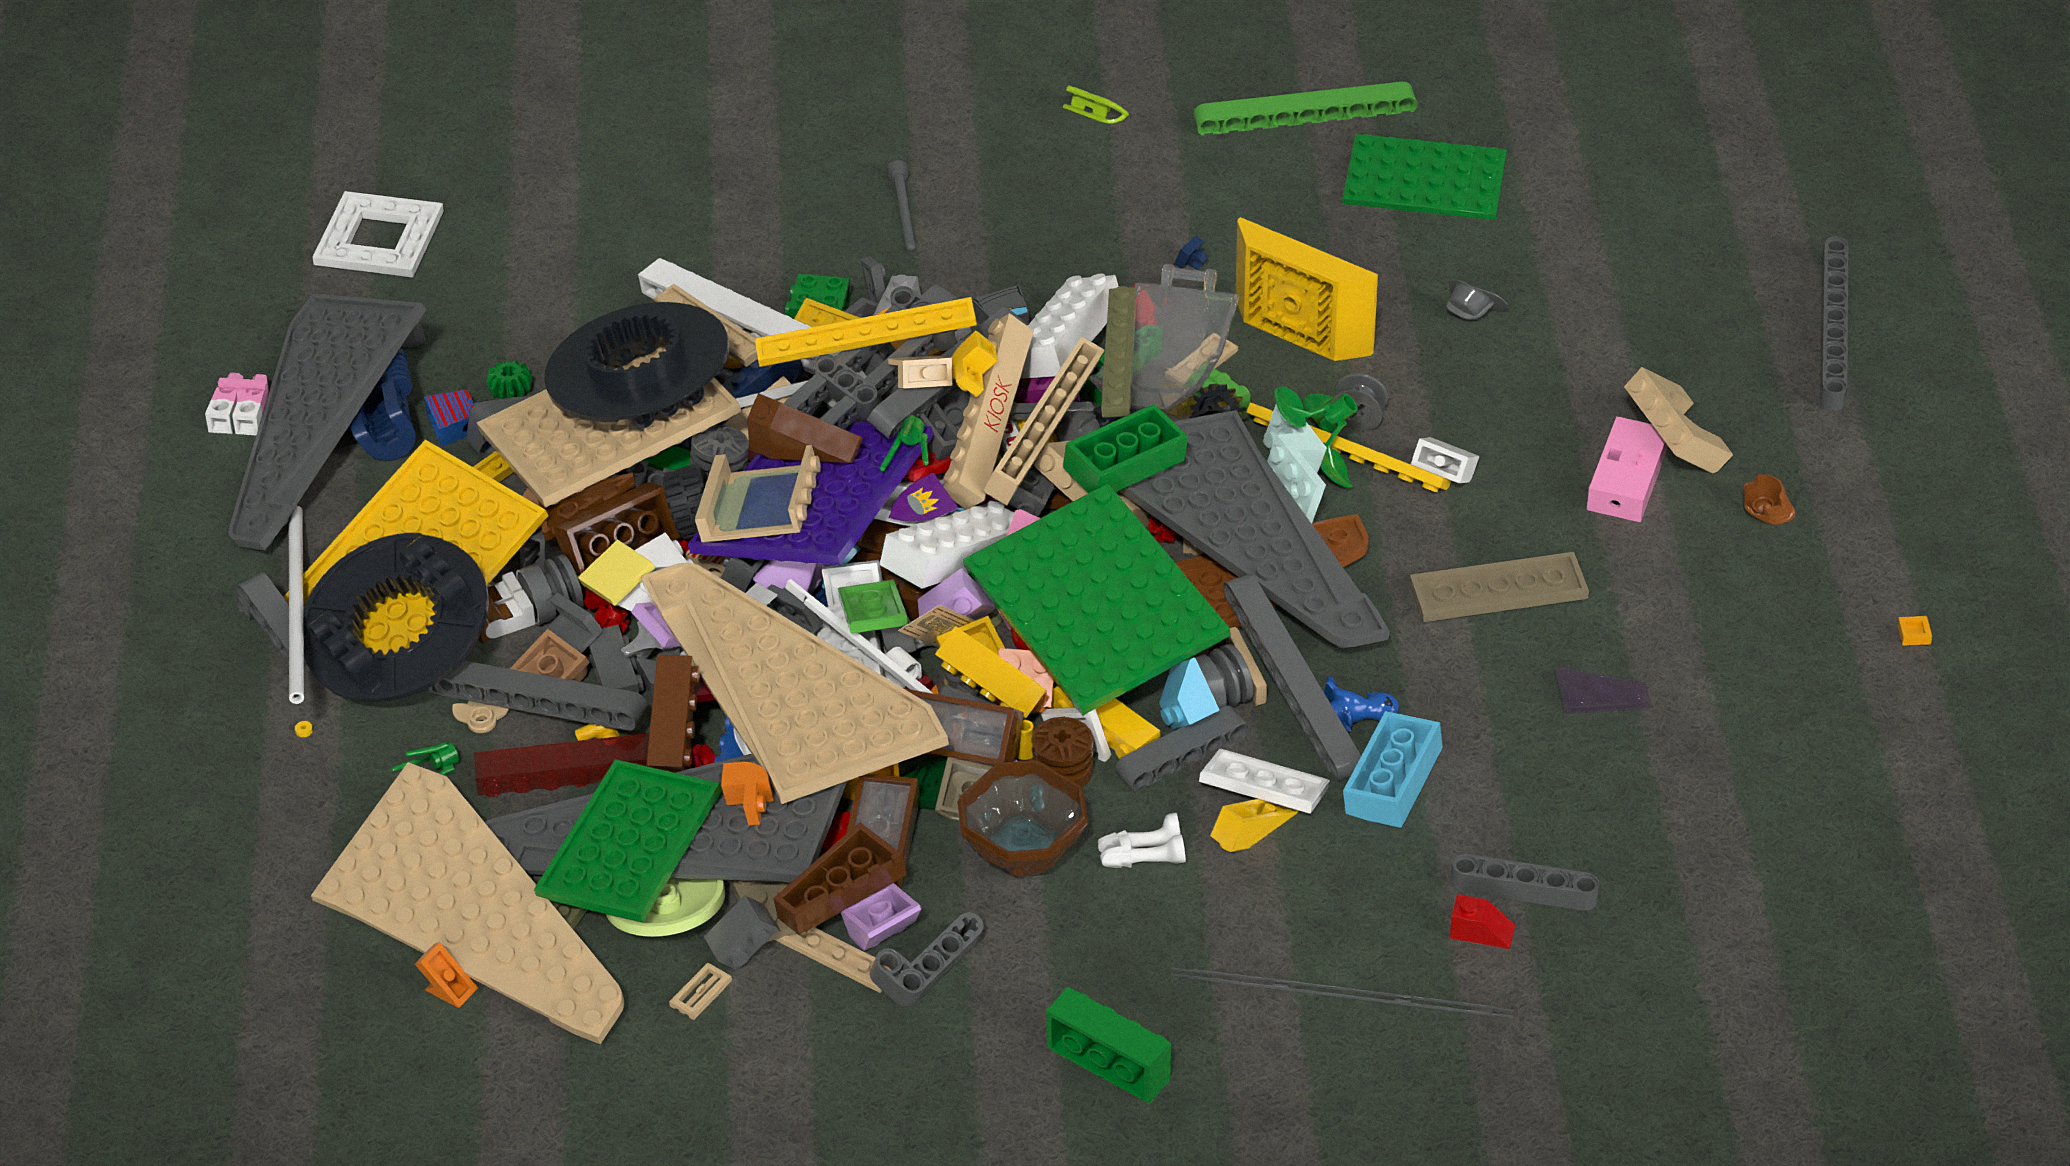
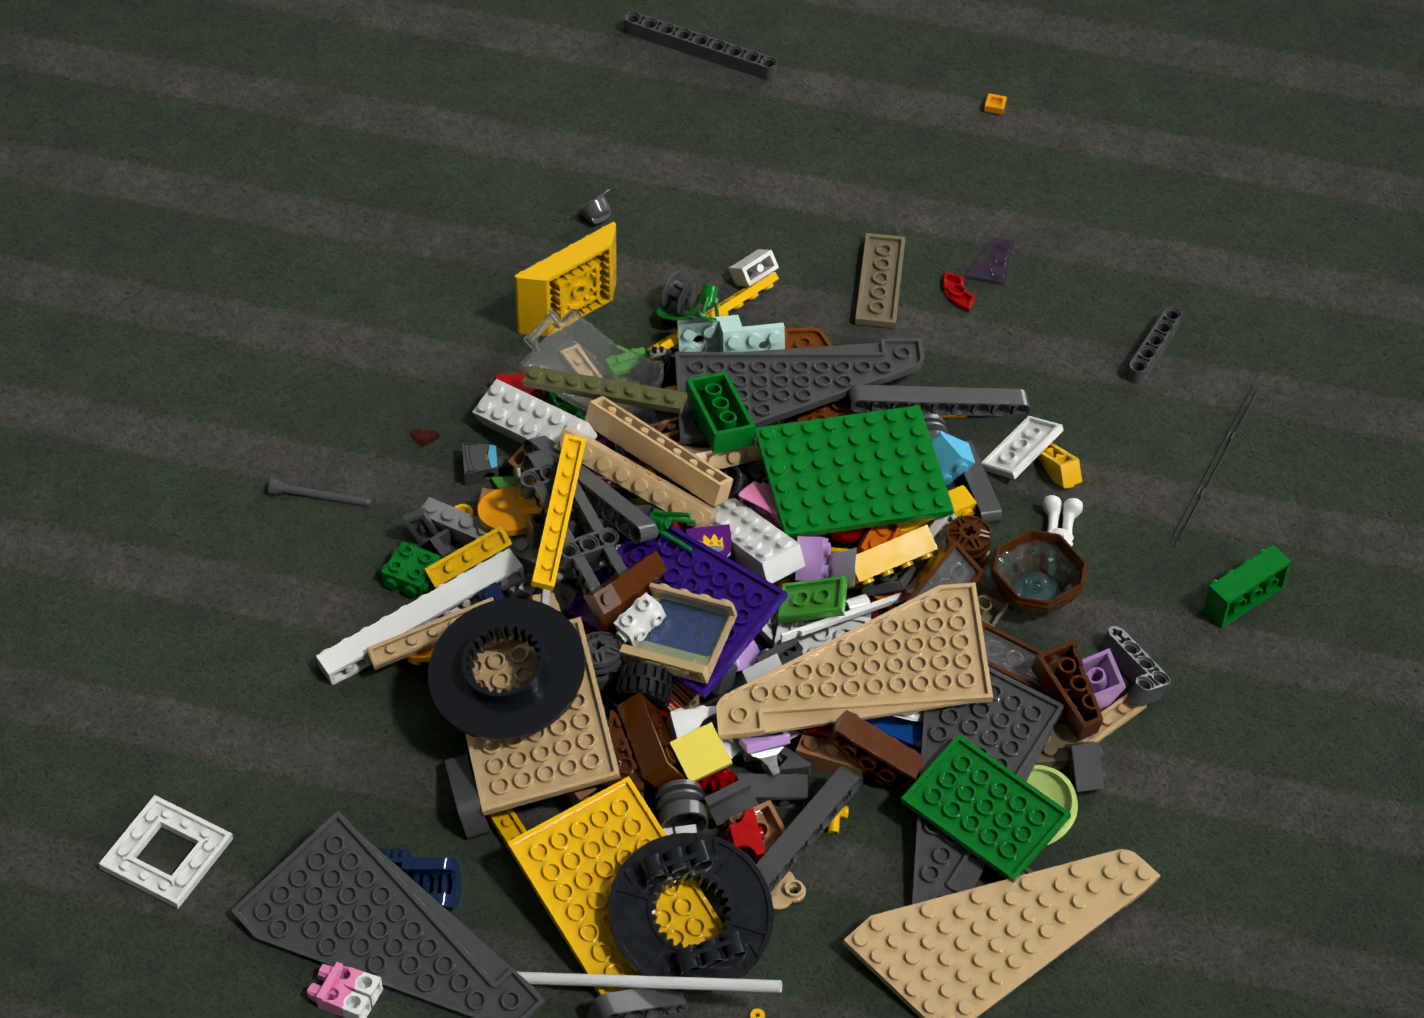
camera: 75 degrees left, 5 degrees up
(440, 756) = (829, 925): green plant -> none
(445, 976) = (1066, 964): orange slope -> none
(449, 414) = (434, 837): blue torso -> none
(509, 380) = (407, 792): green gear -> none
(525, 645) = (747, 835): none -> red brick
(555, 764) = (867, 844): clear red brick -> none
(693, 1012) = (1128, 824): tan tile -> none
(747, 785) = (971, 713): orange brick -> none
(766, 458) = (639, 619): none -> white brick
(923, 371) = (605, 489): tan panel -> none
(971, 361) = (602, 466): yellow brick -> none
(1030, 263) = (424, 437): none -> clear red tile
(1100, 107) = (264, 348): lime piece -> none
(1191, 254) = (466, 341): dark blue tile -> none
(1304, 107) = (333, 236): bright green beam -> none
(1353, 708) = (972, 370): blue animal -> none
(1393, 769) = (1043, 379): medium azure brick -> none
(1425, 176) = (441, 196): green plate -> none
(1480, 922) = (1181, 379): red slope -> none
(1519, 669) = (956, 292): none -> red tile
(1627, 470) = (799, 183): bright pink brick -> none
(1665, 408) = (773, 142): tan arch -> none
(1768, 500) = (853, 129): dark orange hair -> none

